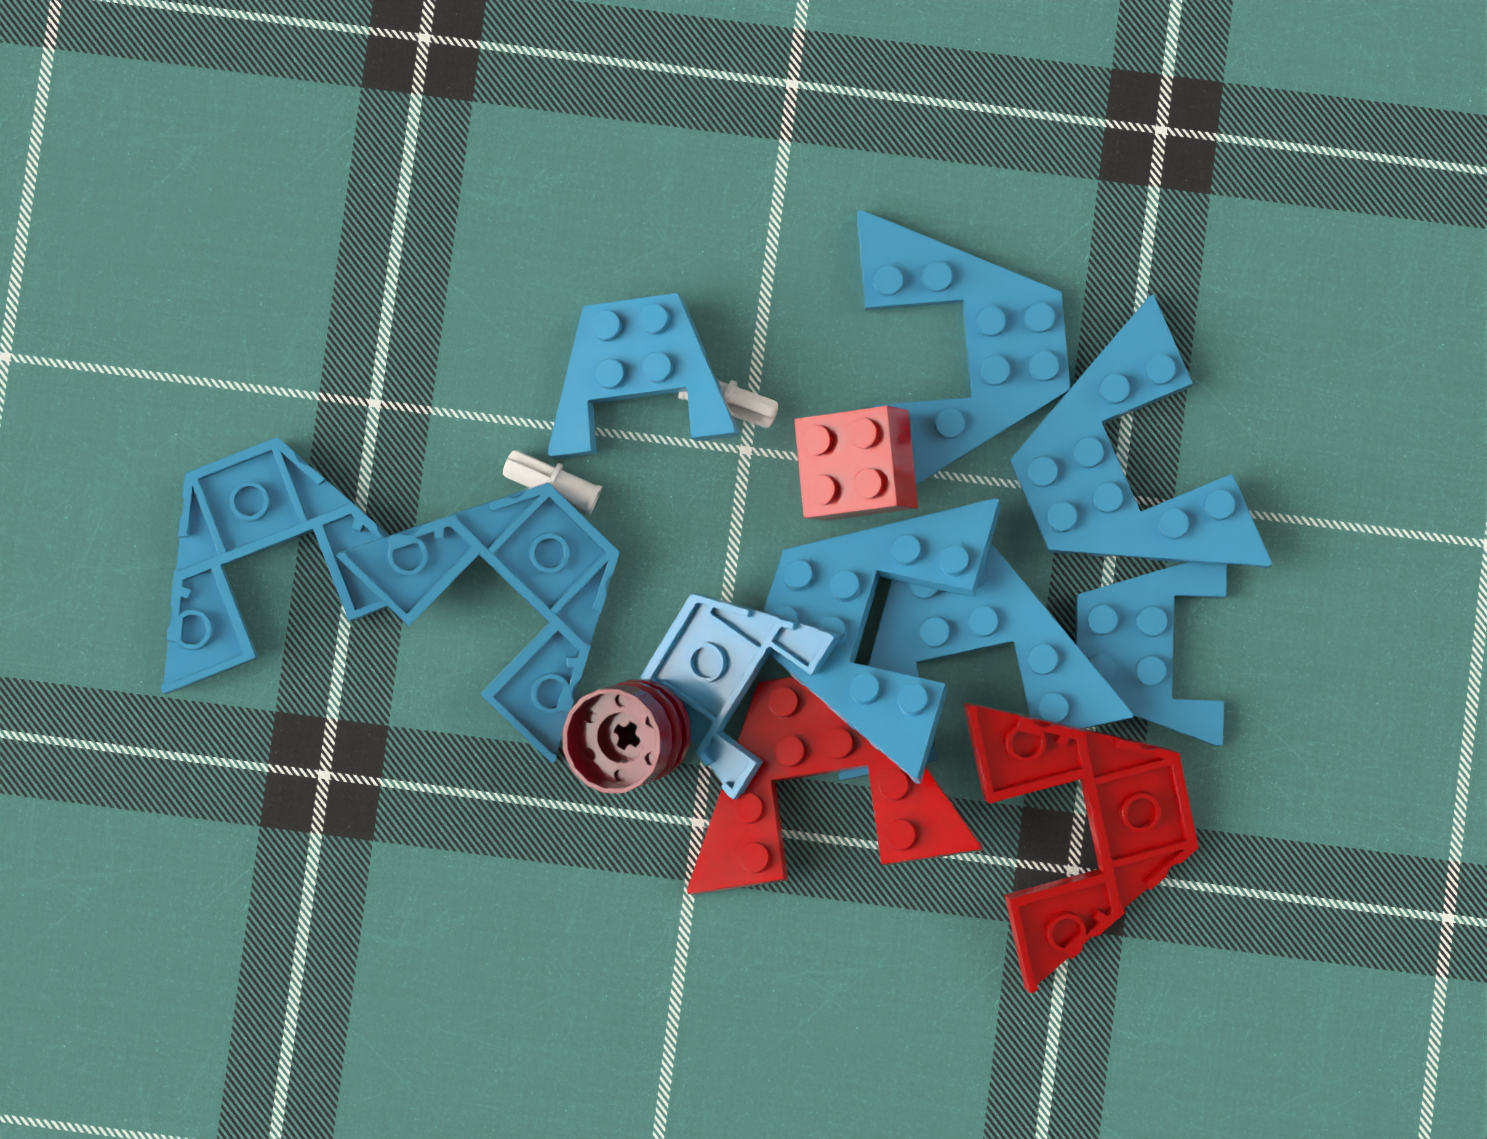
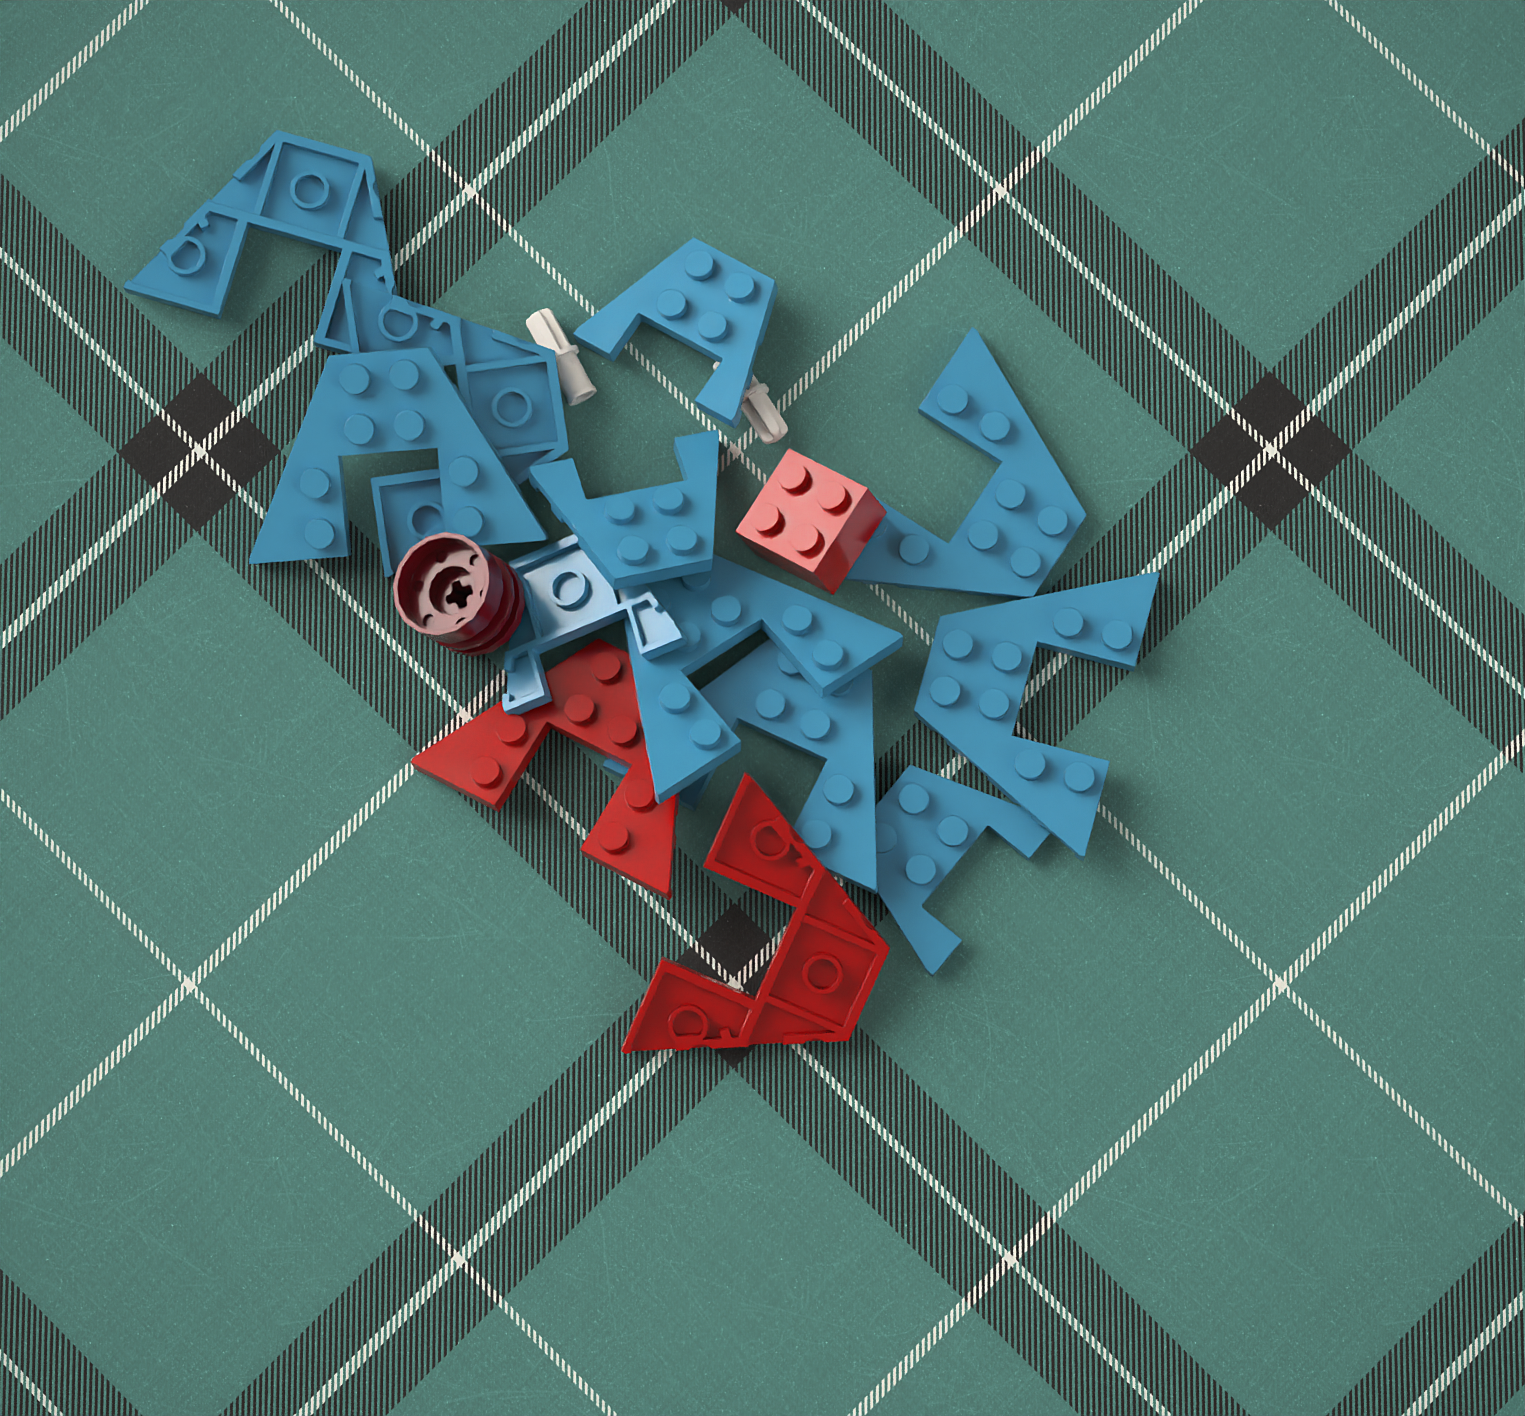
camera: 40 degrees right, 5 degrees down
(449, 632) = (389, 406): none -> dark azure wing
(733, 573) = (644, 531): none -> dark azure wing

